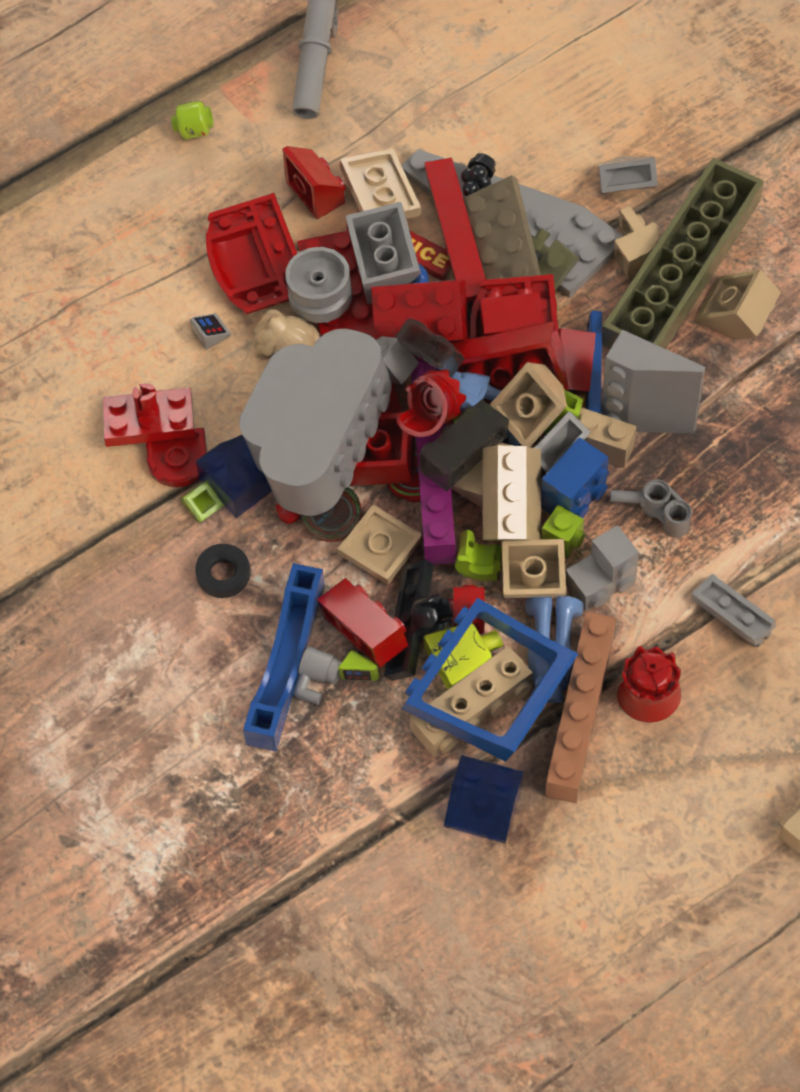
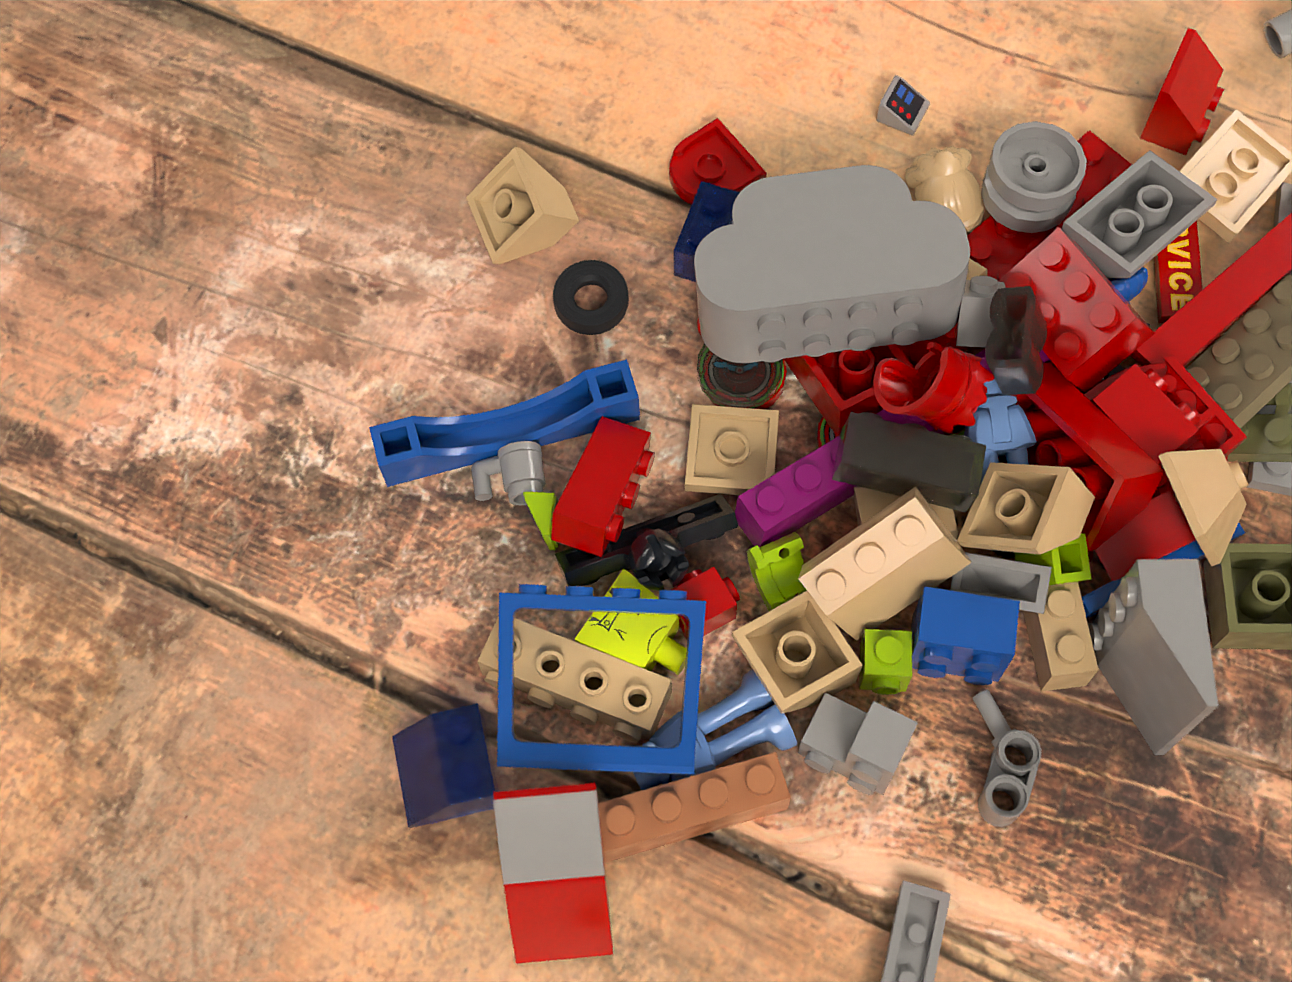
camera: 60 degrees right, 5 degrees up
(133, 578) = (520, 208): none -> tan slope
(148, 416) = (740, 108): plate -> none
(202, 501) = (665, 224): lime slope -> none
(250, 253) = (1034, 75): red slope -> none
(577, 311) = (1208, 496): none -> tan slope
(592, 756) = (554, 872): none -> slope
(650, 685) = (727, 898): red hat -> none

